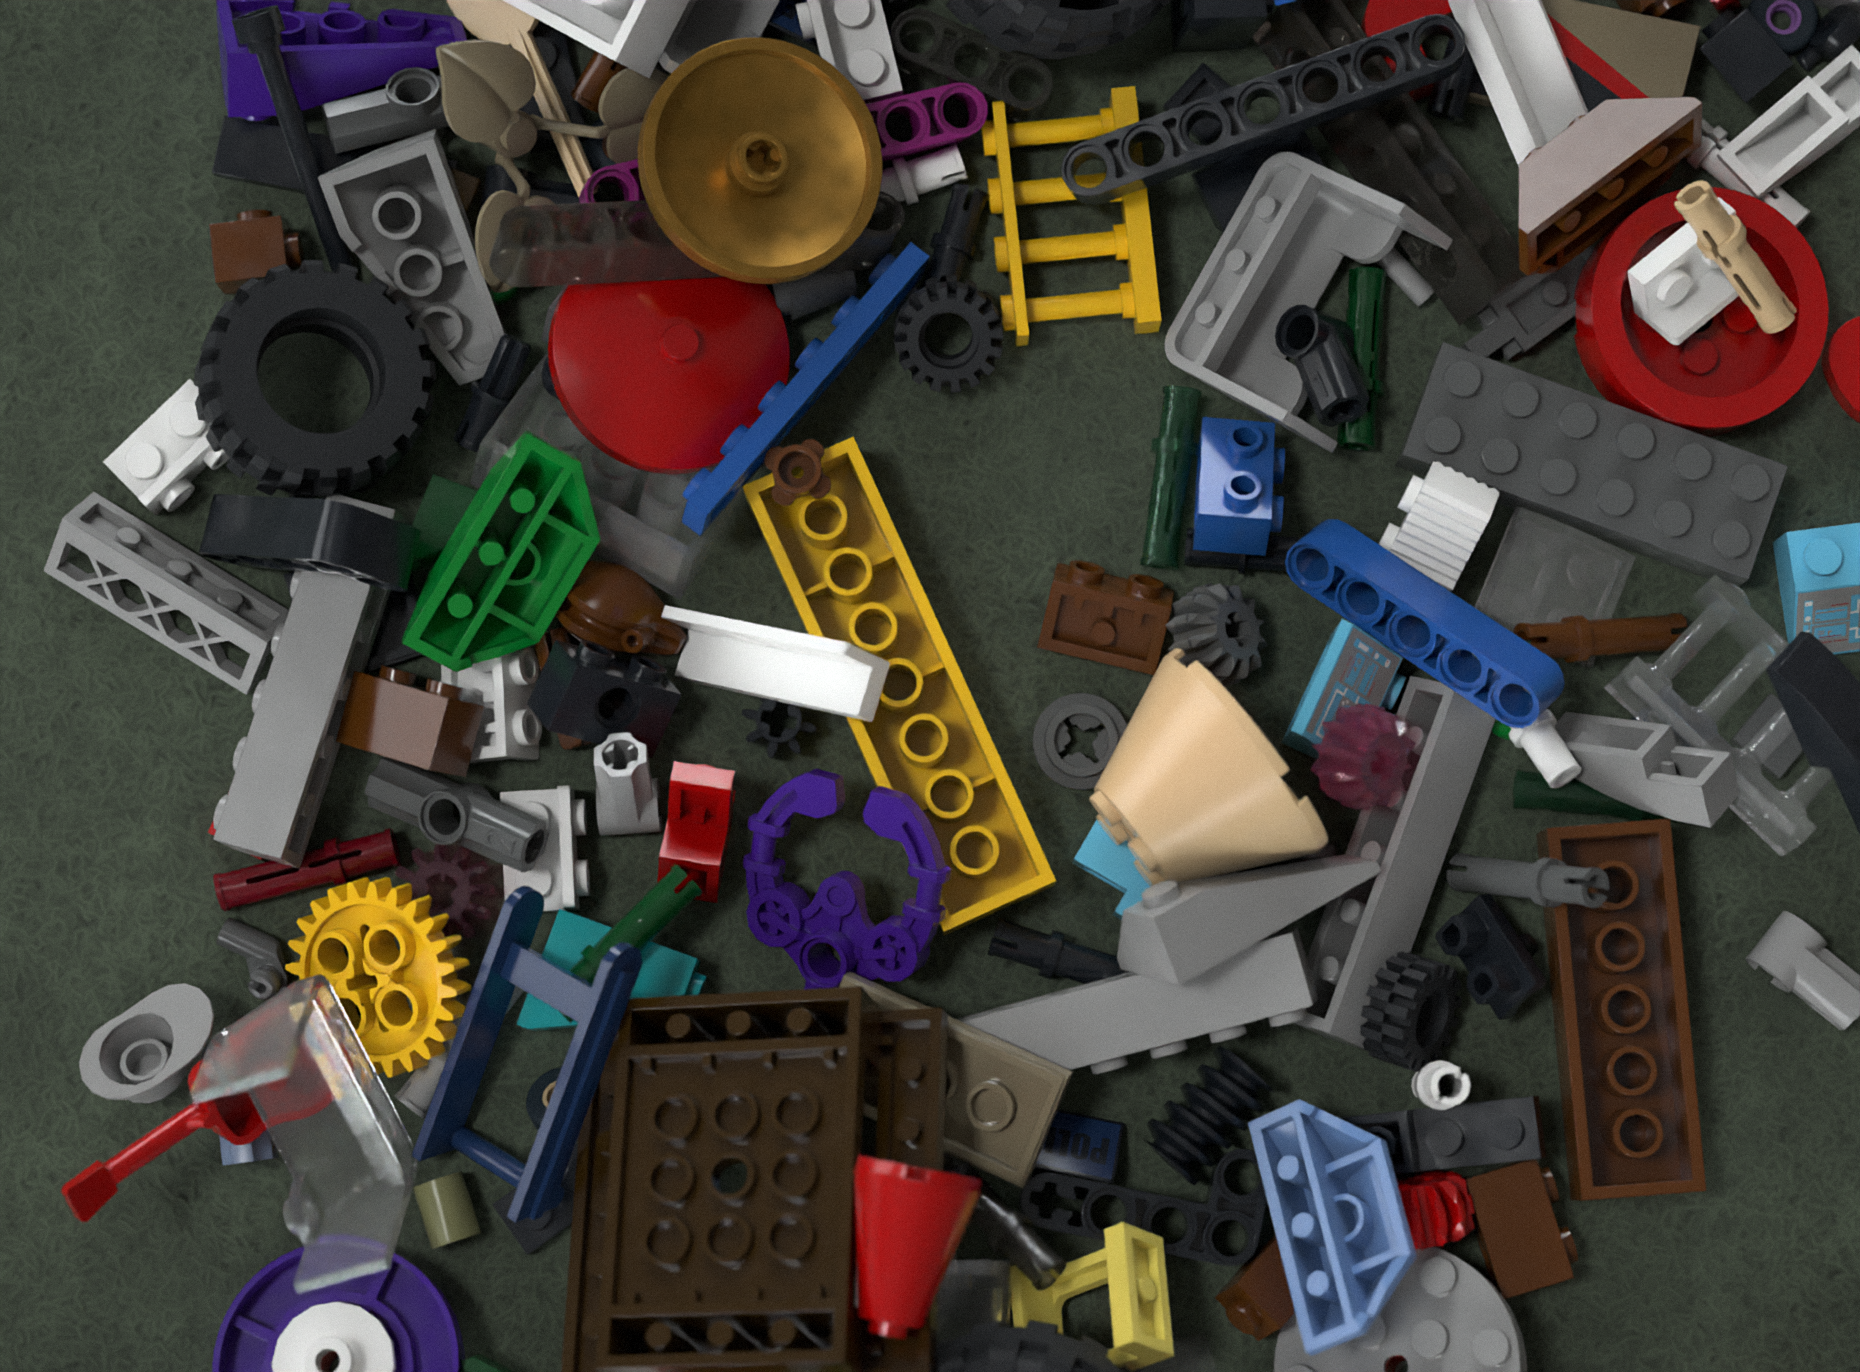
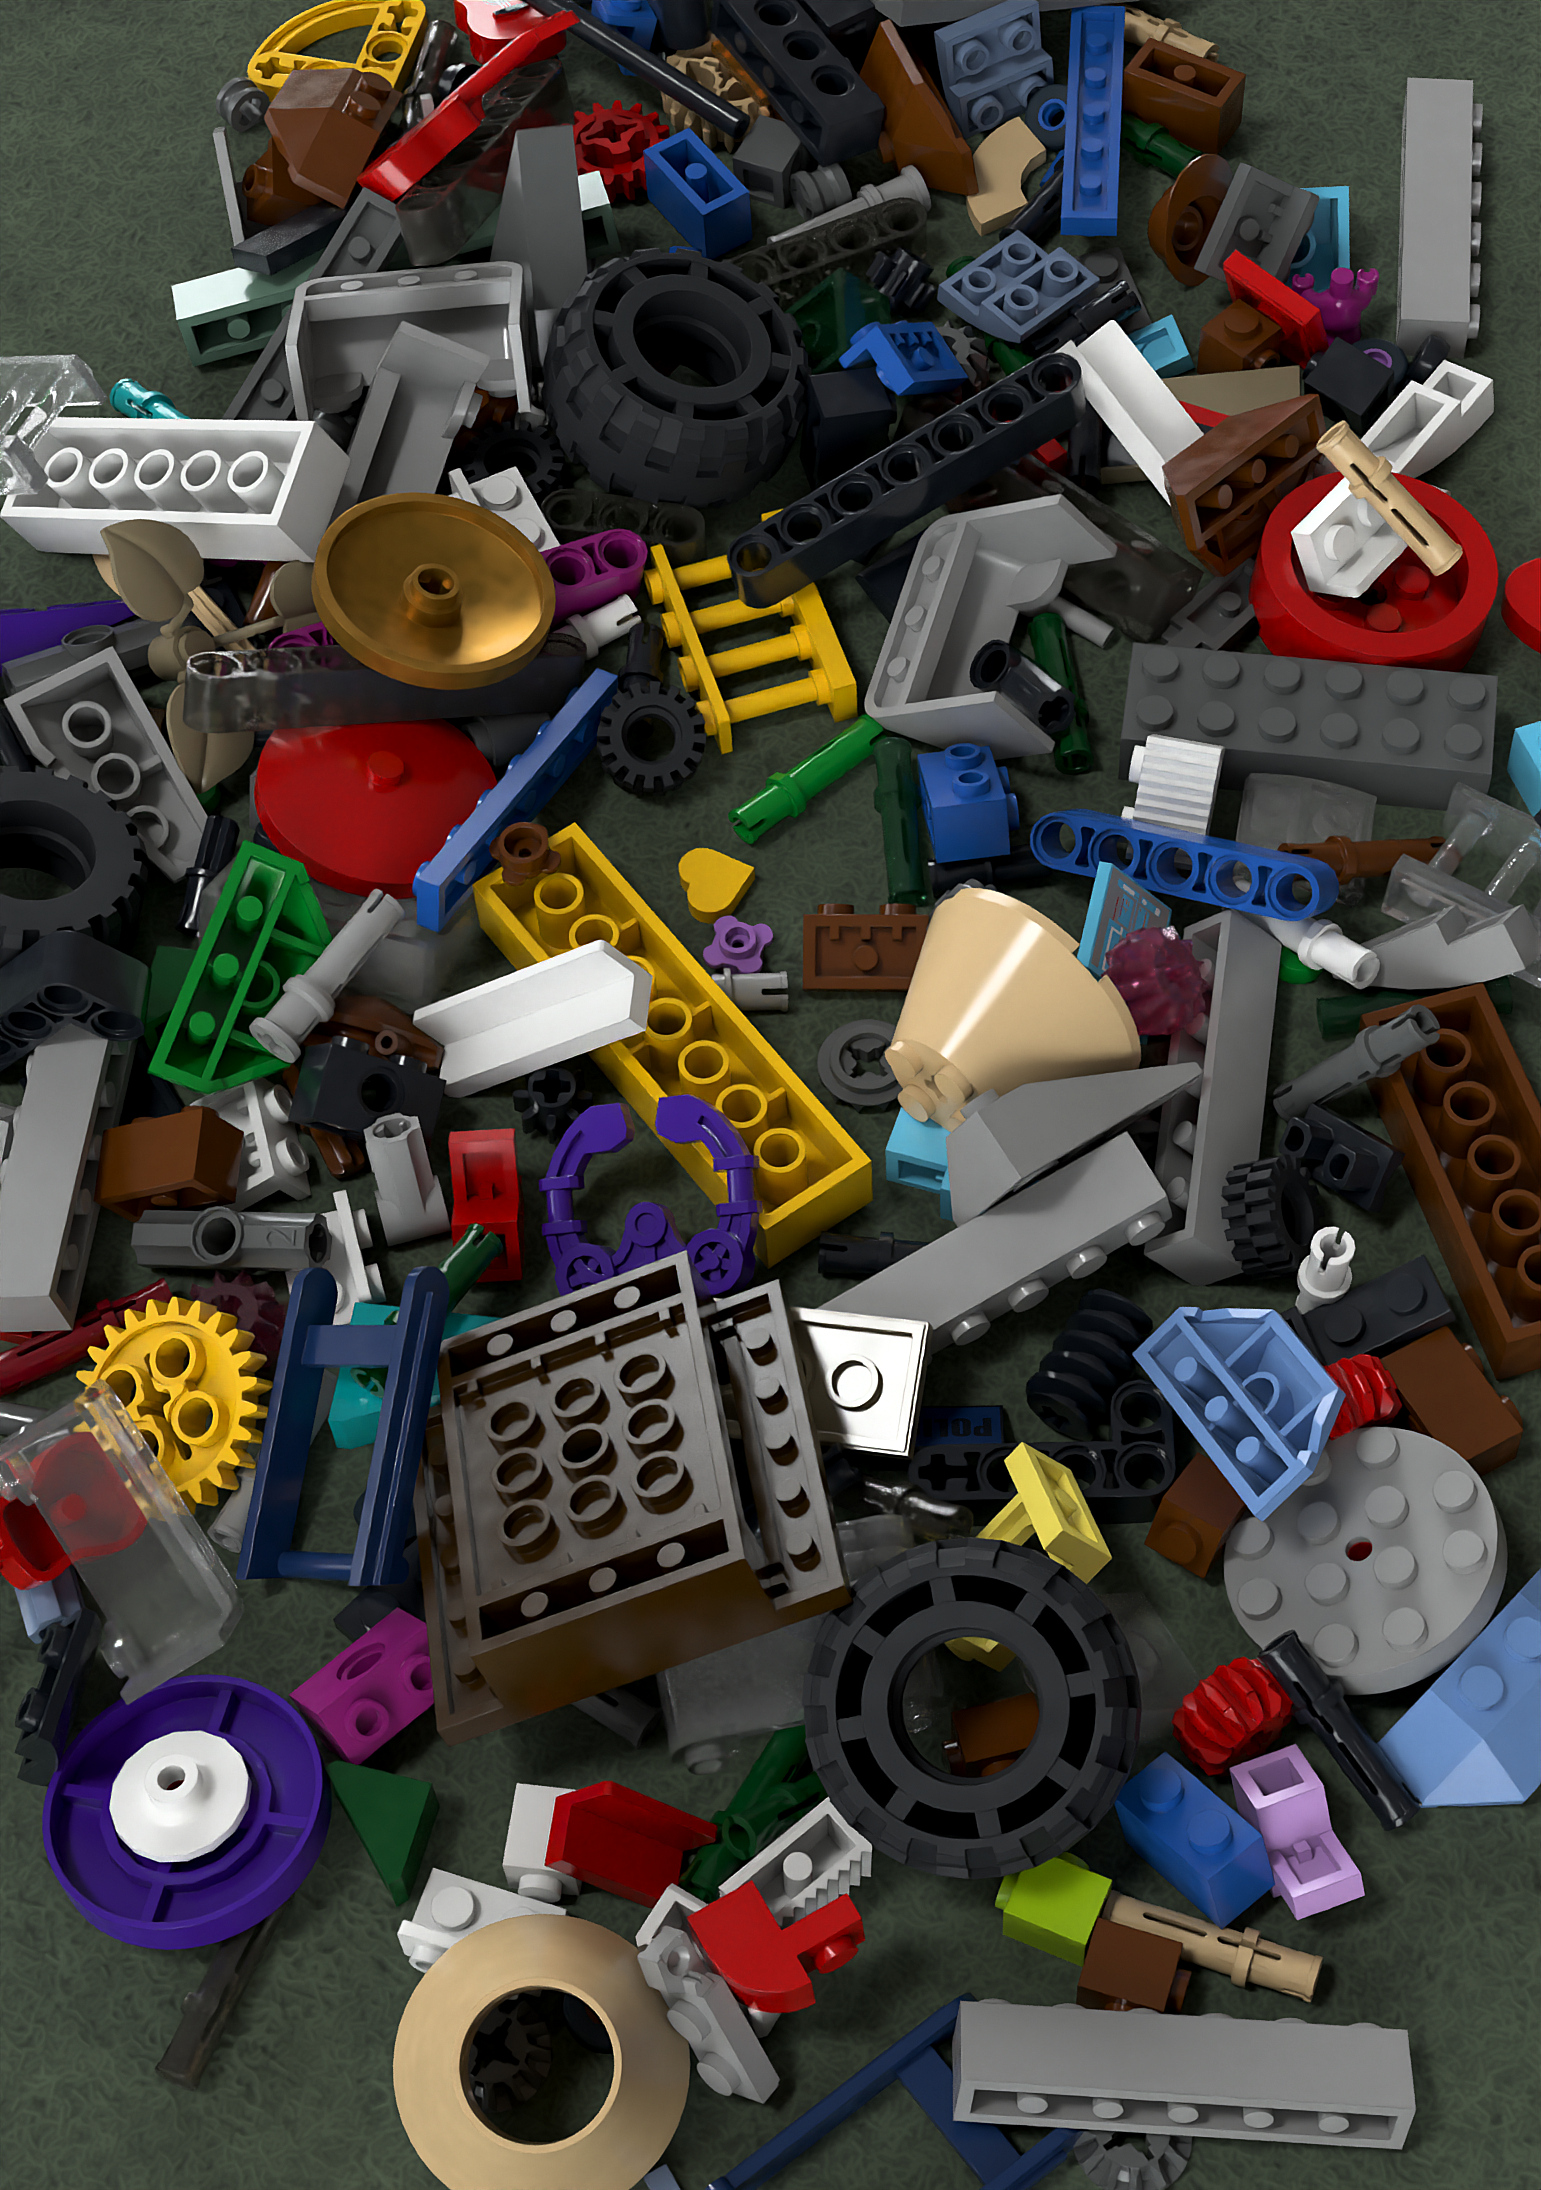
camera: 10 degrees left, 25 degrees down
(234, 1258) = (51, 1708): none -> black slope
(447, 1210) = (284, 1633): olive piece -> none
(512, 1289) = (370, 1688): none -> magenta brick
(566, 593) = (312, 995): none -> light grey pin
(906, 1239) = (786, 1439): red cone -> none
(978, 502) = (713, 883): none -> yellow tile
(984, 565) = (742, 959): none -> medium lavender plate
(986, 637) = (746, 990): none -> light grey pin
(1073, 415) = (789, 792): none -> green pin

